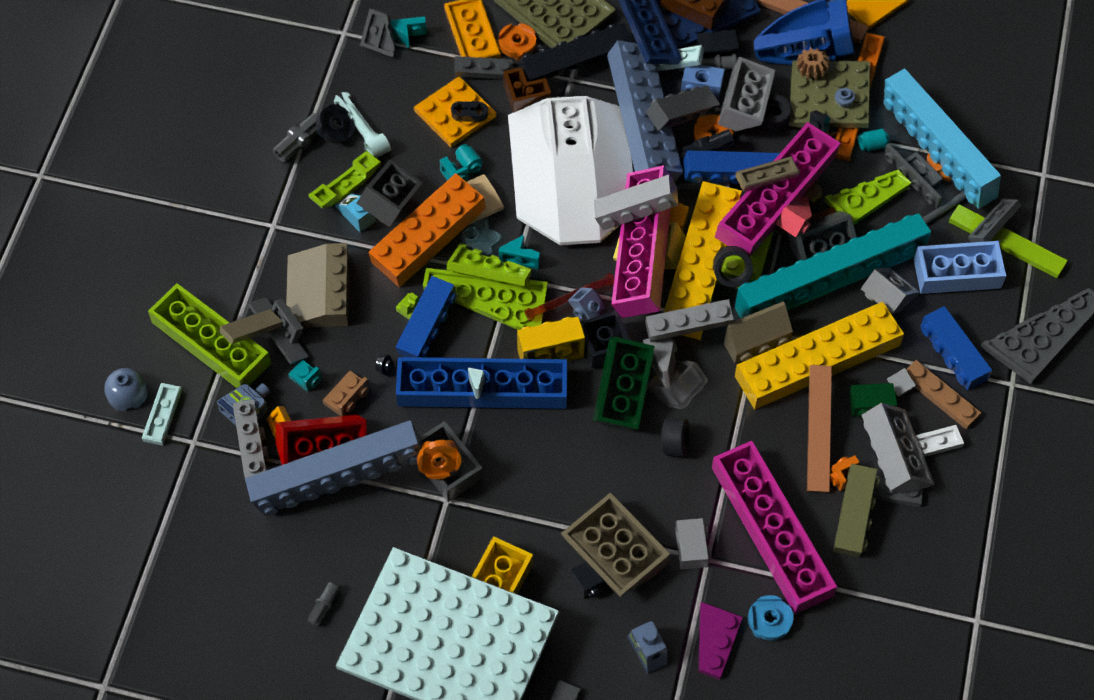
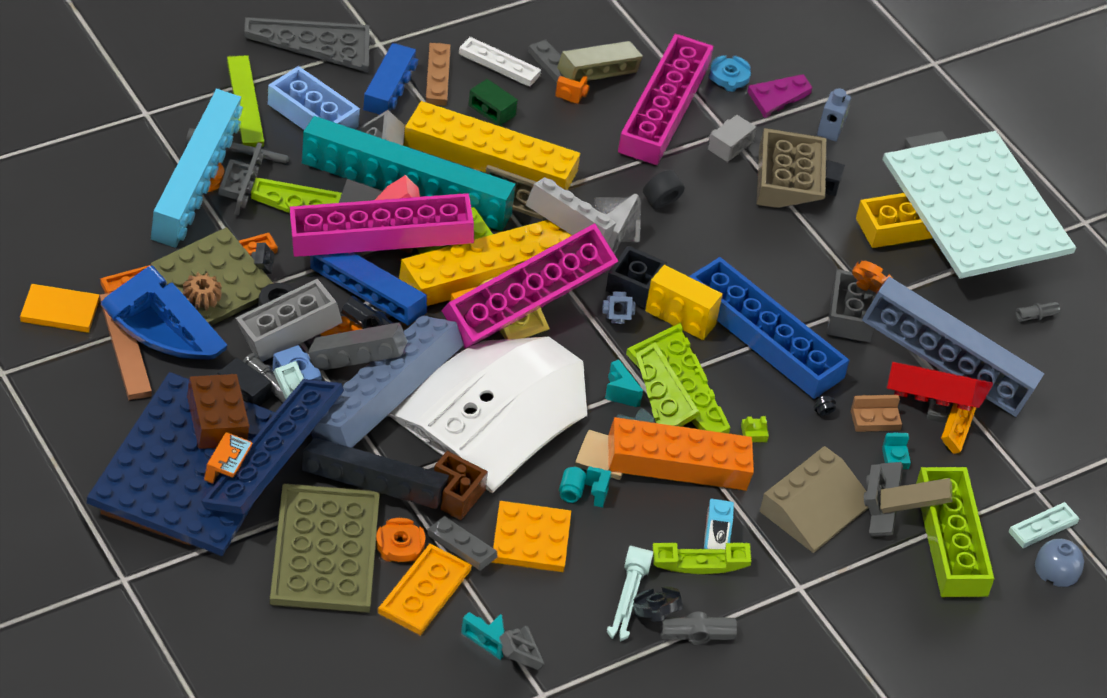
camera: 140 degrees left, 15 degrees down
(241, 394) = (979, 465): sand blue torso -> none
(250, 438) = (995, 430): light grey bracket -> none
(389, 193) = (685, 492): dark grey brick -> none
(426, 318) = (758, 398): blue brick -> none
(469, 111) = (529, 508): black beam -> none
(477, 381) = (781, 306): light aqua slope -> none
(531, 313) = (623, 325): clear red bar -> none
(623, 383) = (667, 229): dark green brick -> none
(636, 202) = (511, 293): light grey brick -> none
(735, 251) = (491, 212): black tyre -> none
(767, 173) = (385, 222): dark tan tile -> none
(819, 429) = (558, 111): nougat tile -> none
(844, 101) = (219, 250): sand blue plate -> none
(873, 140) = (237, 224): teal brick -> none
(897, 449) = (526, 59): light grey slope -> none
(902, 382) = (457, 95): light grey tile -> none
(994, 221) = (257, 104): dark grey plate -> none

